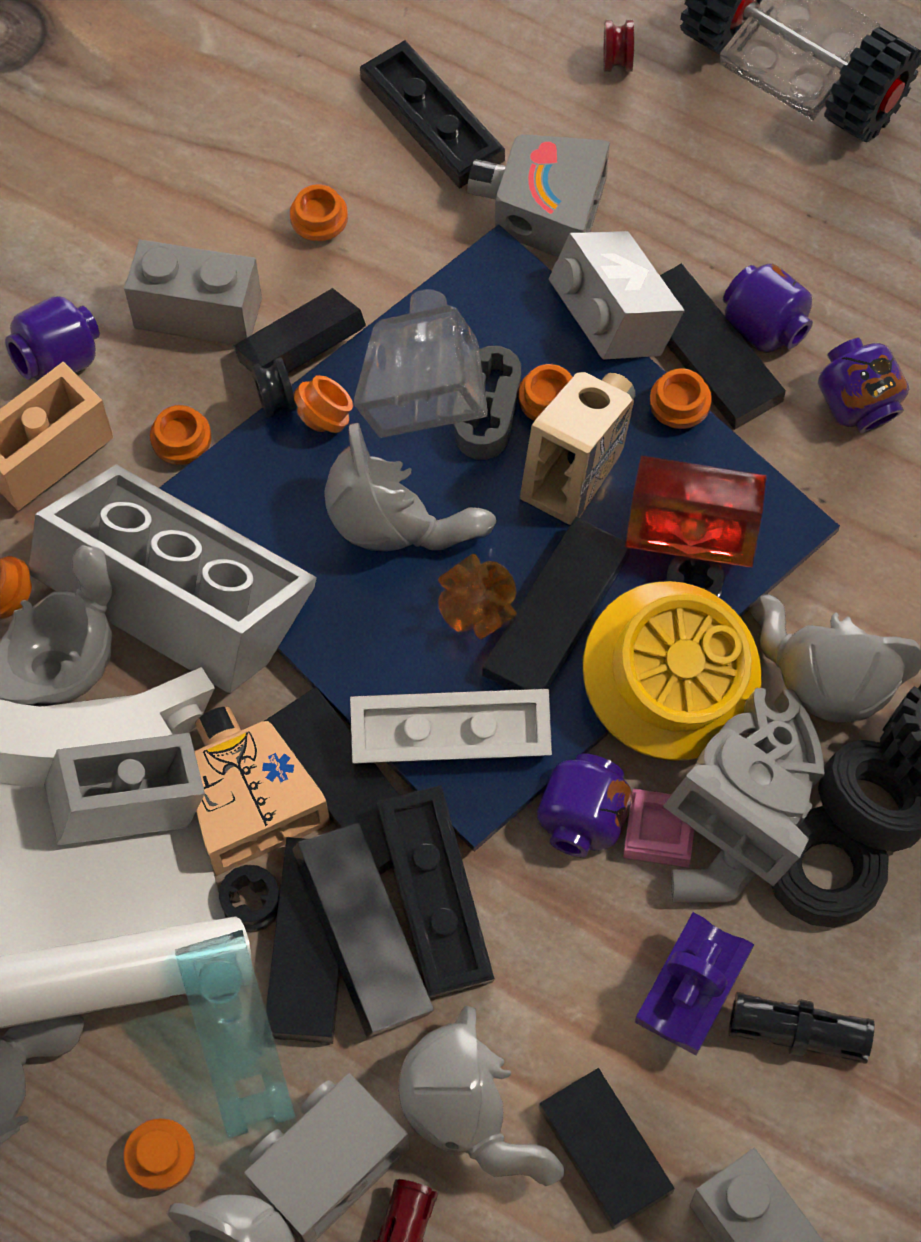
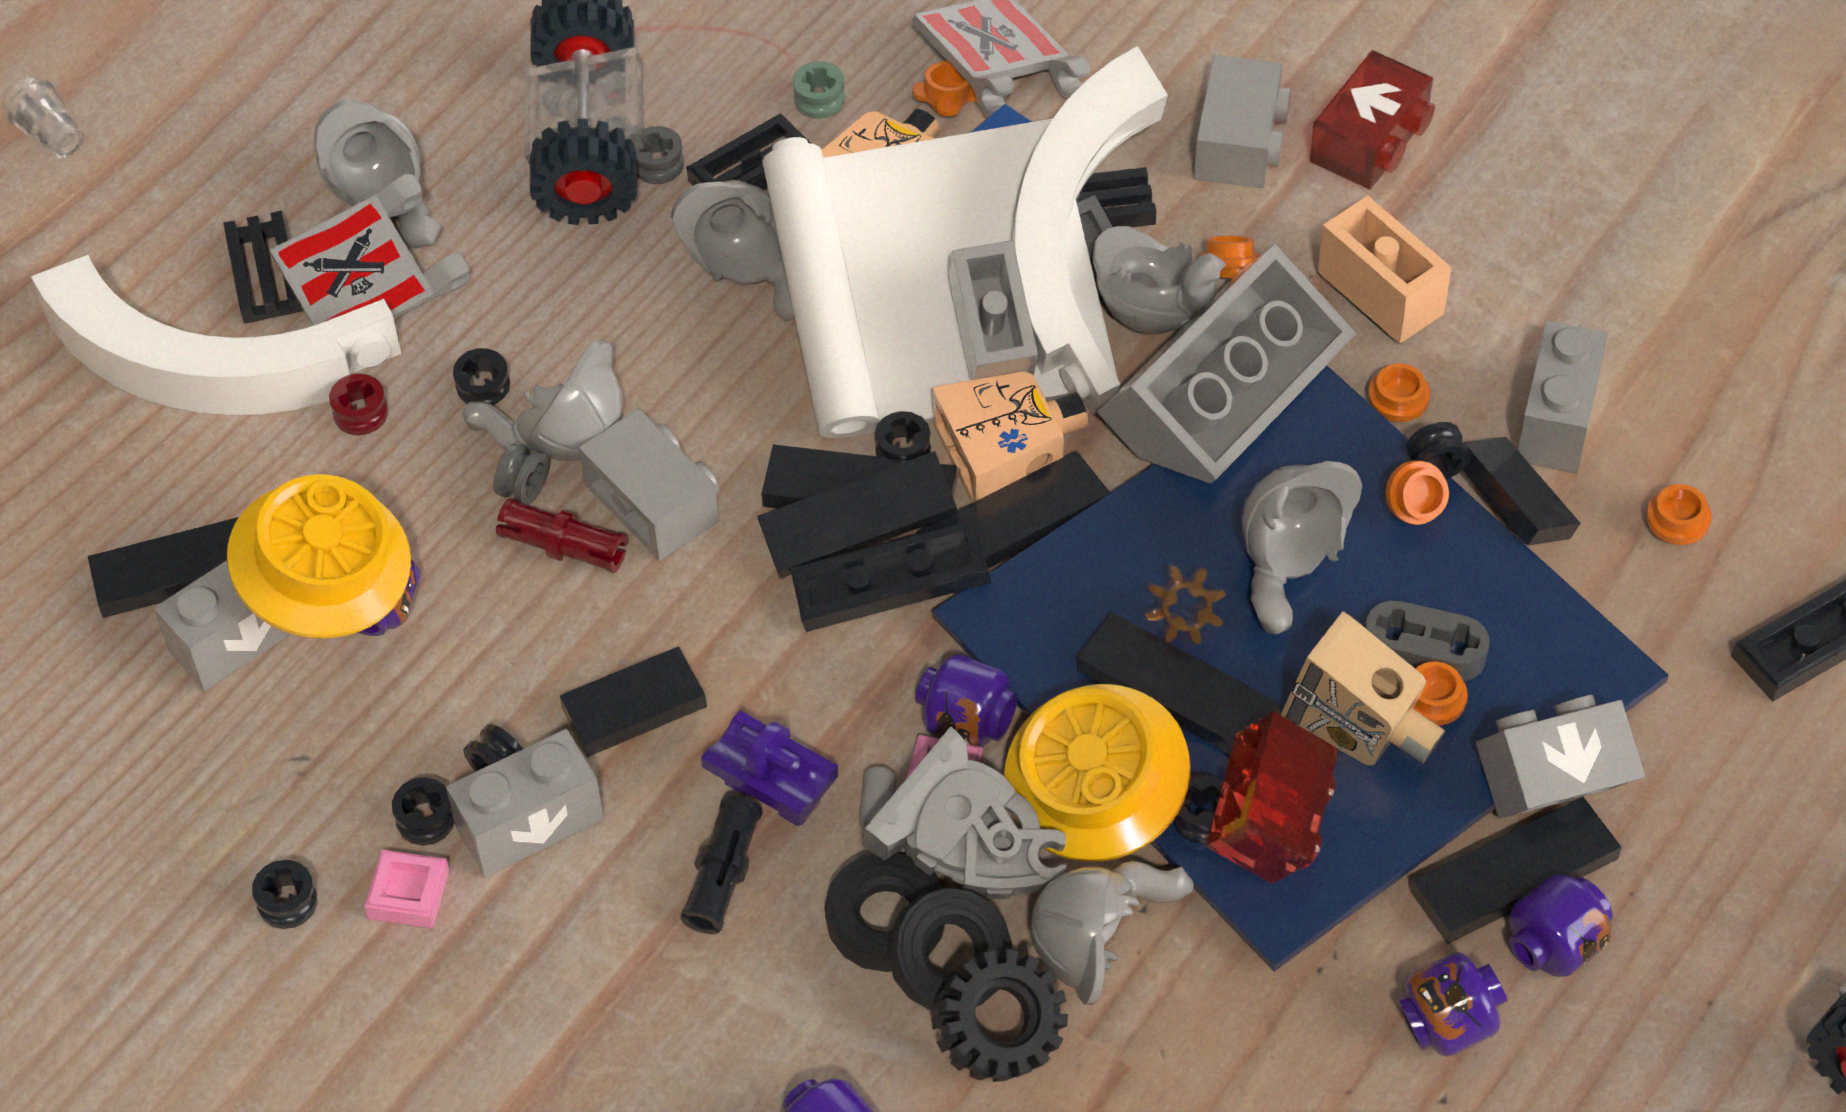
camera: 95 degrees right, 10 degrees down
(51, 335) = (1502, 284): dark purple head -> none
(159, 1154) = (676, 374): orange plate -> none
(234, 1030) = (766, 409): clear light blue plate -> none
(421, 370) = (1455, 567): clear torso -> none
(450, 726) = (1047, 582): white plate -> none
(457, 1108) = (683, 562): light grey piece -> none
(545, 188) = (1711, 721): light grey torso -> none
(680, 399) = (1428, 815): orange plate -> none

